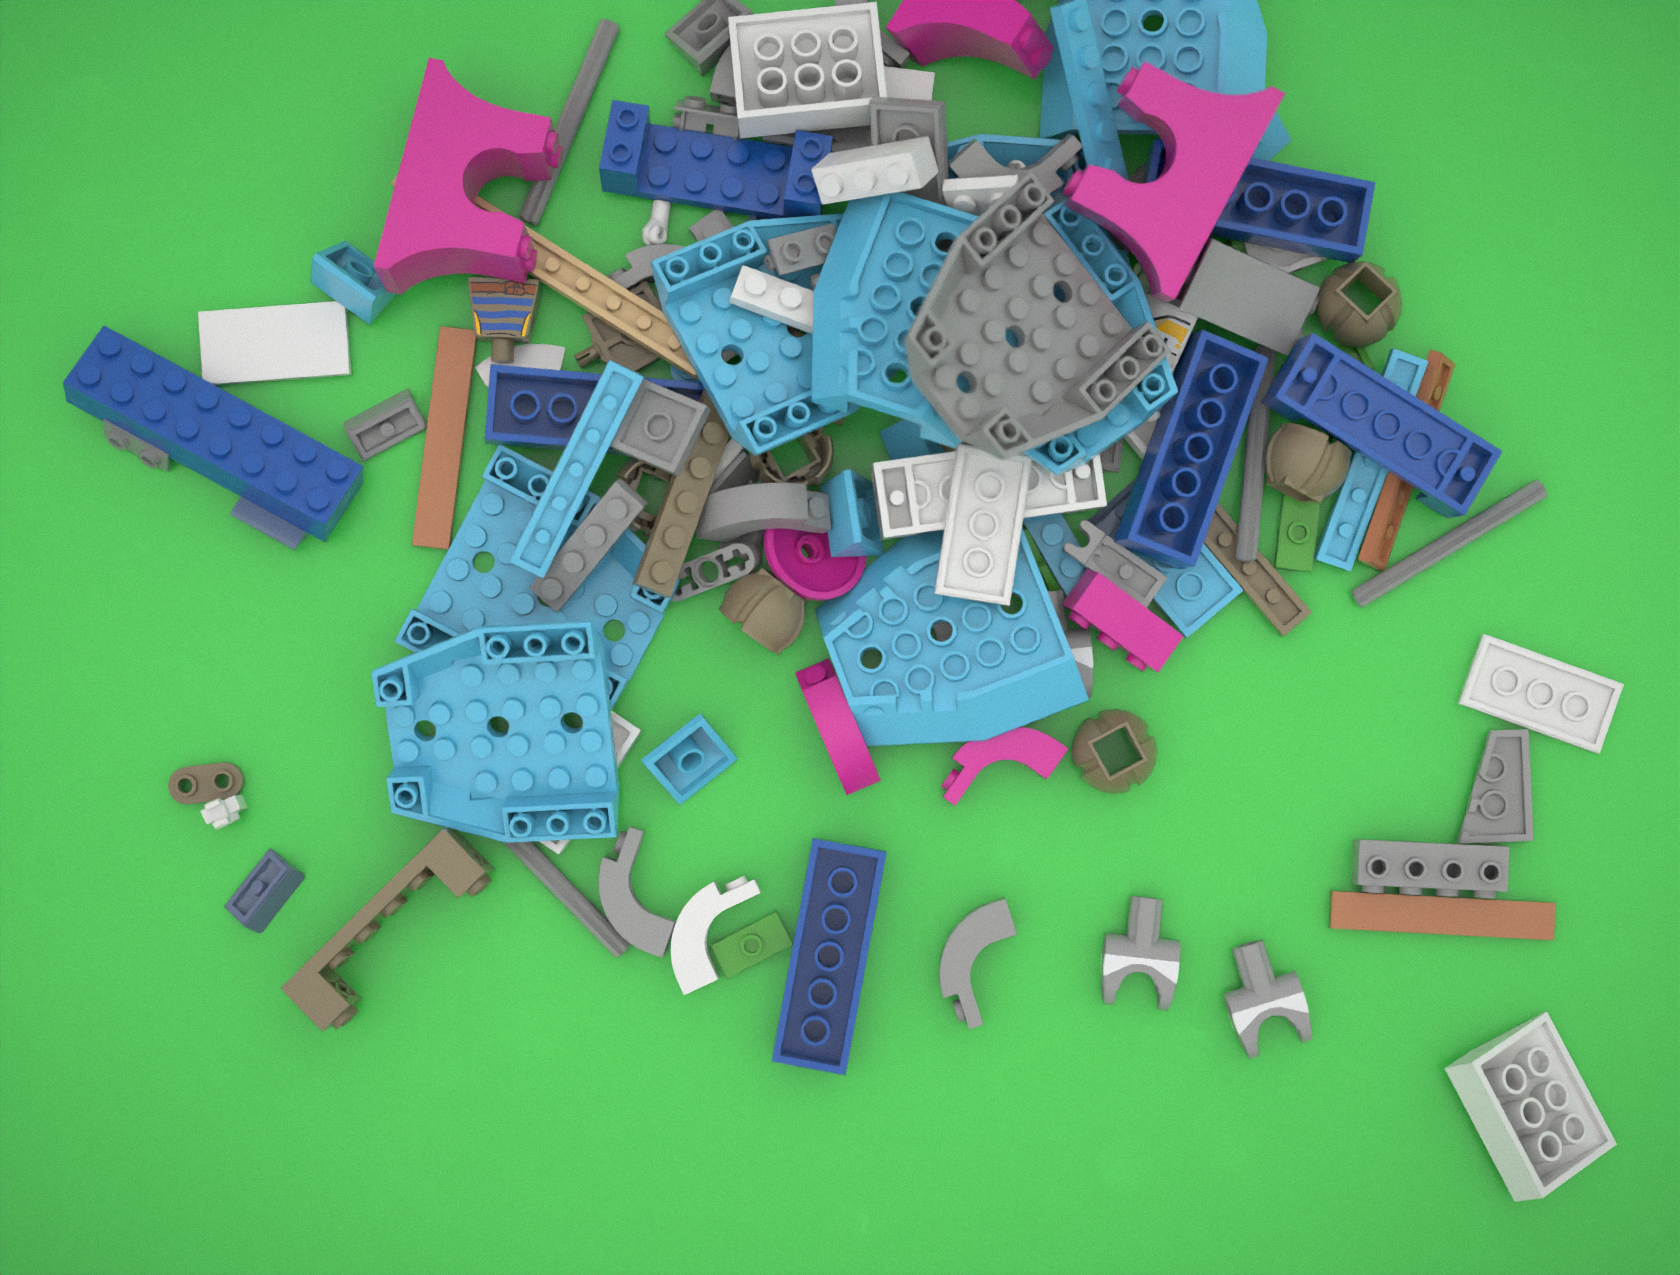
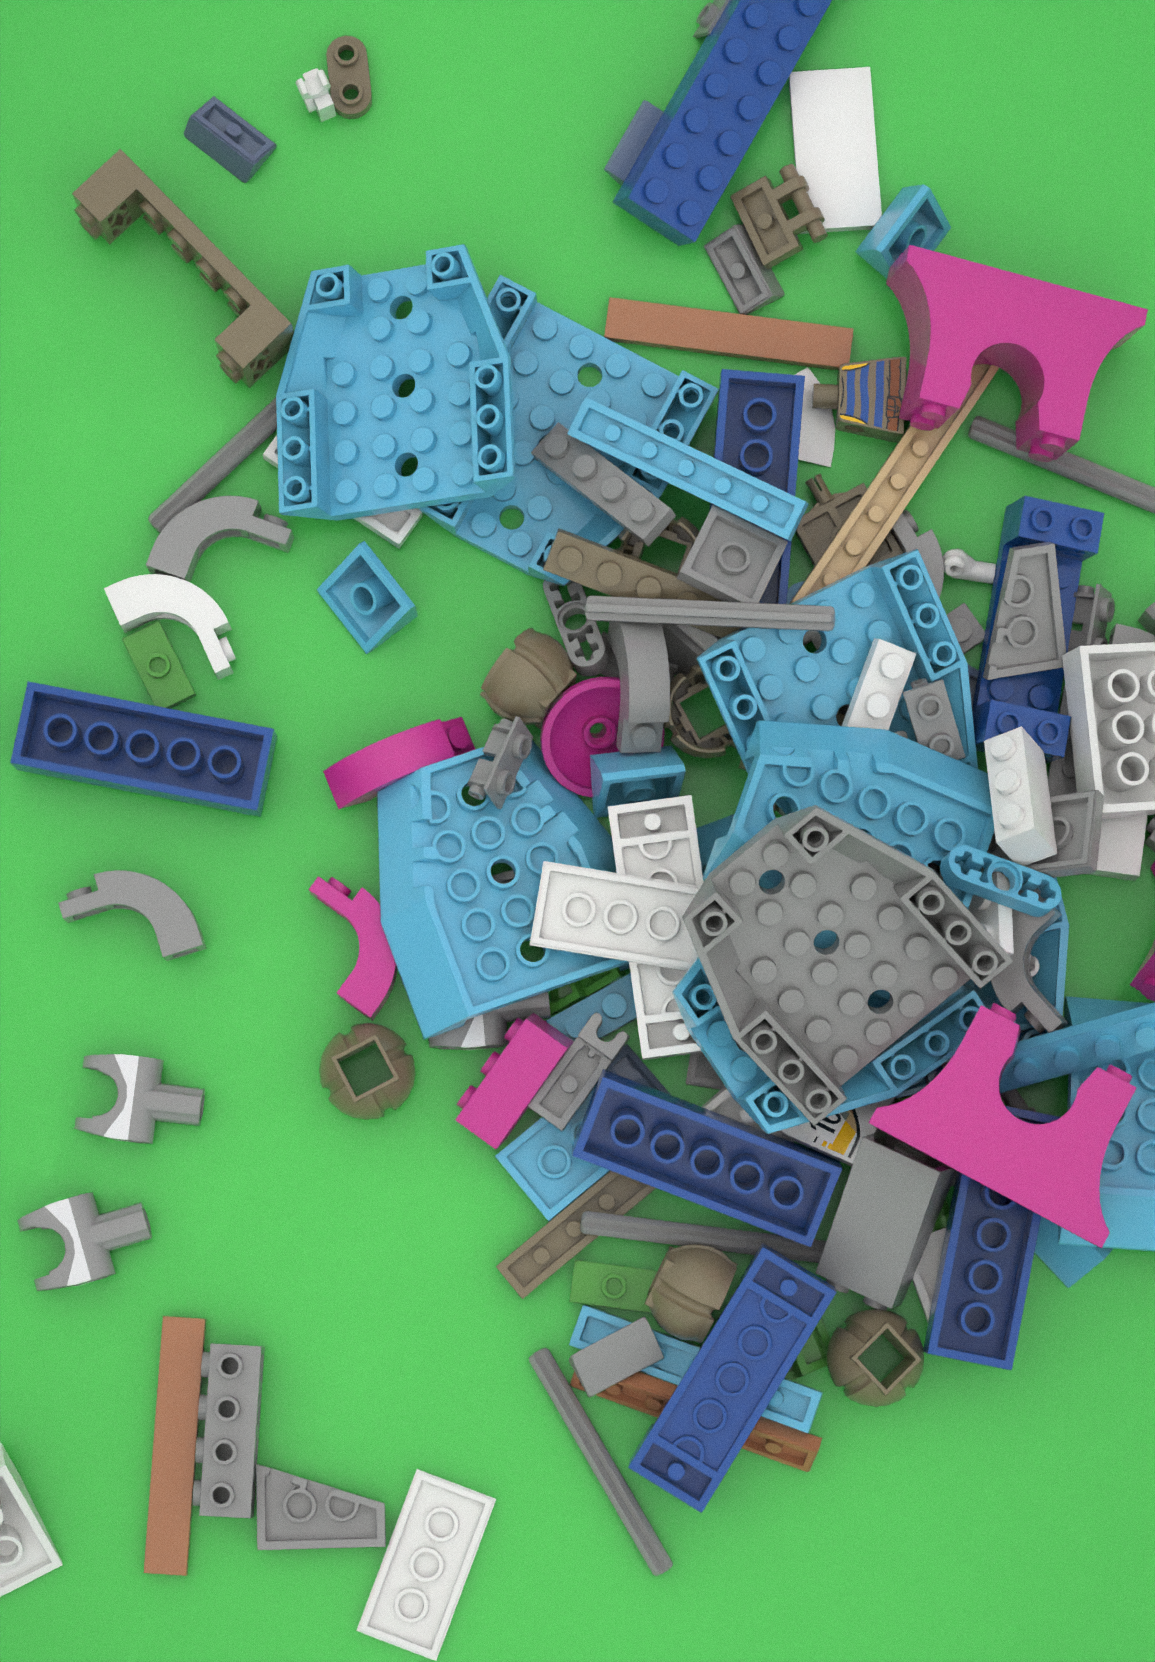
camera: 85 degrees right, 5 degrees down
(343, 402) = (768, 222): none -> dark tan plate
(705, 166) = (1028, 615): none -> light grey wing
(710, 445) = (710, 613): none -> light grey axle
(858, 636) = (509, 745): none -> light grey hinge
(957, 201) = (982, 885): none -> medium azure beam
(1365, 527) = (616, 1357): none -> light grey slope

